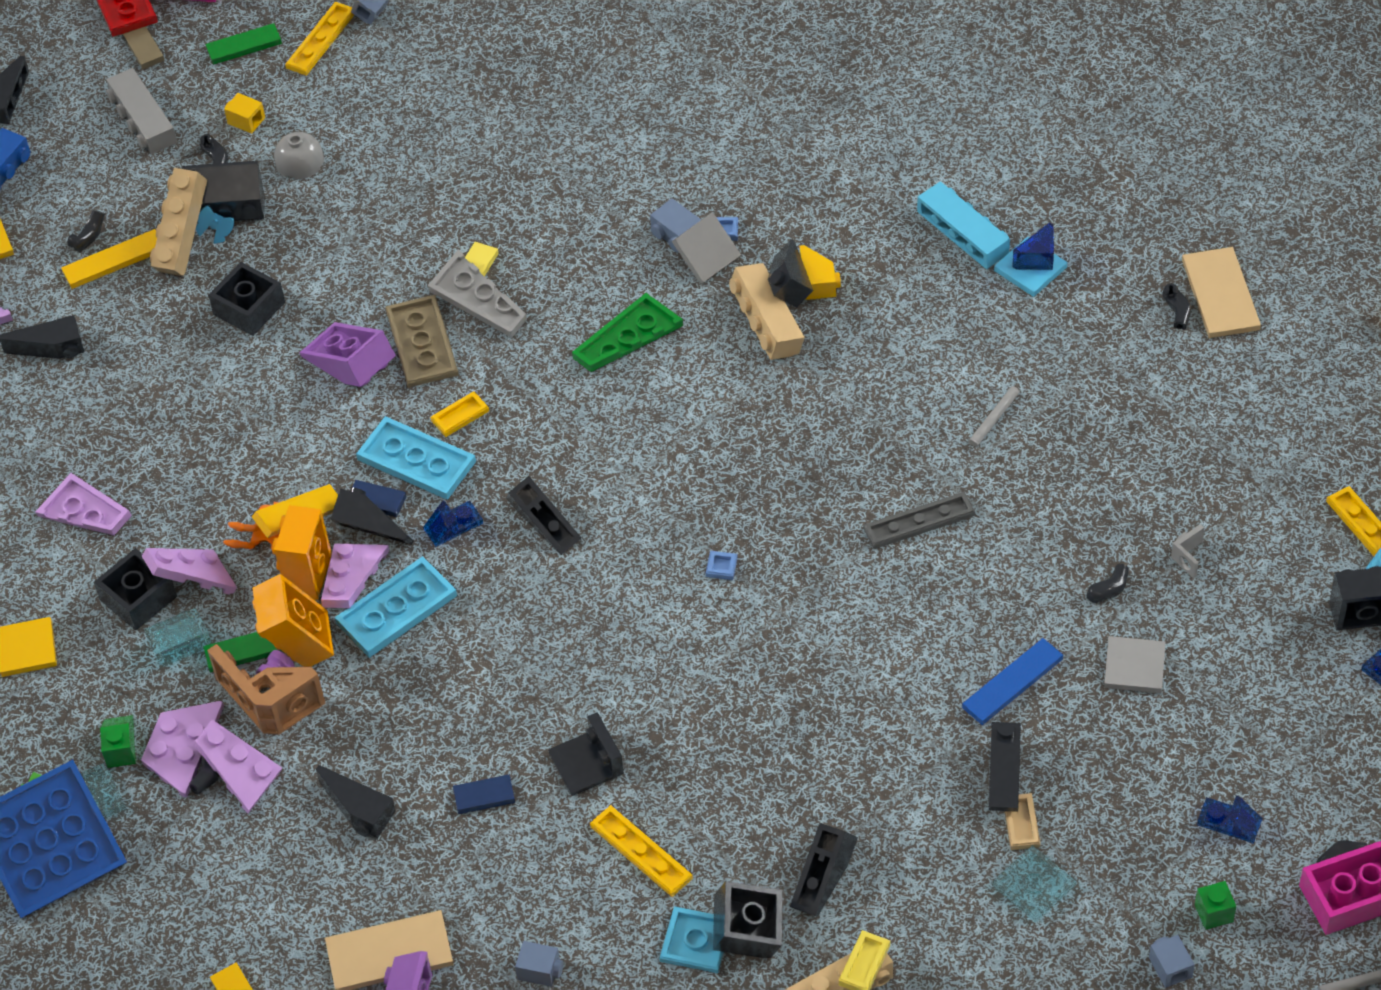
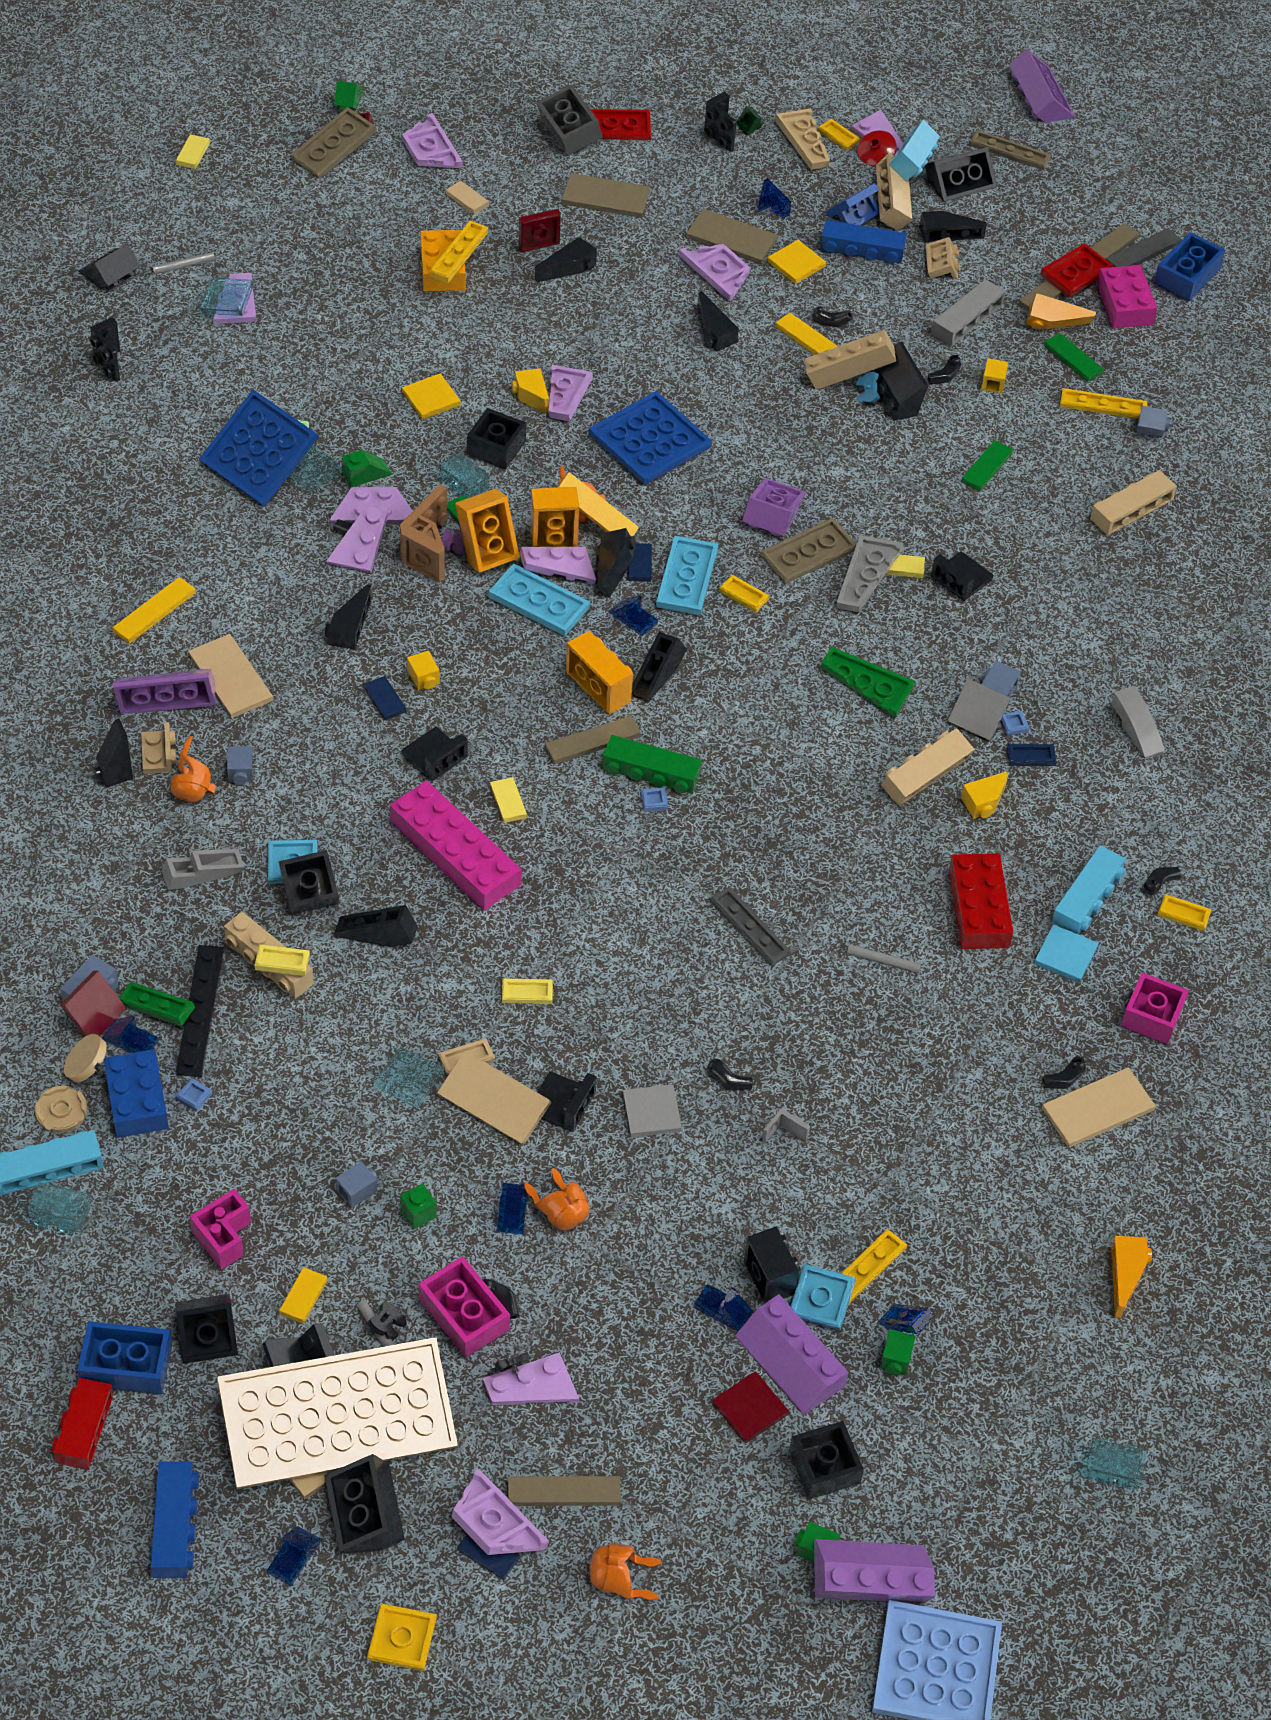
camera: 65 degrees right, 0 degrees up
(46, 112) = (942, 258): none -> tan bracket
(69, 538) = (531, 389): none -> yellow slope
(176, 42) = (1053, 313): none -> light orange slope
(189, 564) = (526, 462): lavender wing -> none
(193, 443) = (650, 437): none -> blue plate
(246, 298) = (799, 427): black brick -> none
(298, 155) = (966, 422): light grey cylinder -> none
(365, 156) = (987, 465): none -> green tile
(463, 743) = (423, 670): none -> yellow brick
(472, 50) = (1133, 502): none -> tan brick
(513, 217) = (960, 574): none -> black bracket
(538, 566) = (599, 672): none -> light orange brick
(618, 603) = (591, 740): none -> dark tan tile
(641, 851) = (363, 808): yellow tile -> none
(677, 703) = (508, 800): none -> light yellow tile
(678, 553) = (651, 764): none -> green brick
(731, 765) = (455, 845): none -> dark pink brick
(763, 127) = (1138, 721): none -> light grey slope
(771, 226) = (1031, 755): none -> dark blue tile
(789, 277) = (960, 770): black slope -> none
(947, 744) = (527, 991): none -> light yellow tile
(952, 313) = (980, 901): none -> red brick
(961, 170) = (1160, 876): none -> black arm
(1004, 766) = (510, 1029): black slope -> none
(1007, 161) = (1184, 912): none -> yellow tile
(1012, 681) = (605, 1025): blue tile -> none
(1036, 251) = (1078, 948): clear blue slope -> none
(1087, 804) = (494, 1097): none -> tan tile
(1106, 737) = (567, 1099): none -> black bracket
(1124, 211) = (1154, 1008): none -> dark pink brick
(1255, 765) = (563, 1208): none -> orange hair
(1348, 969) = (382, 1322): none -> black piece

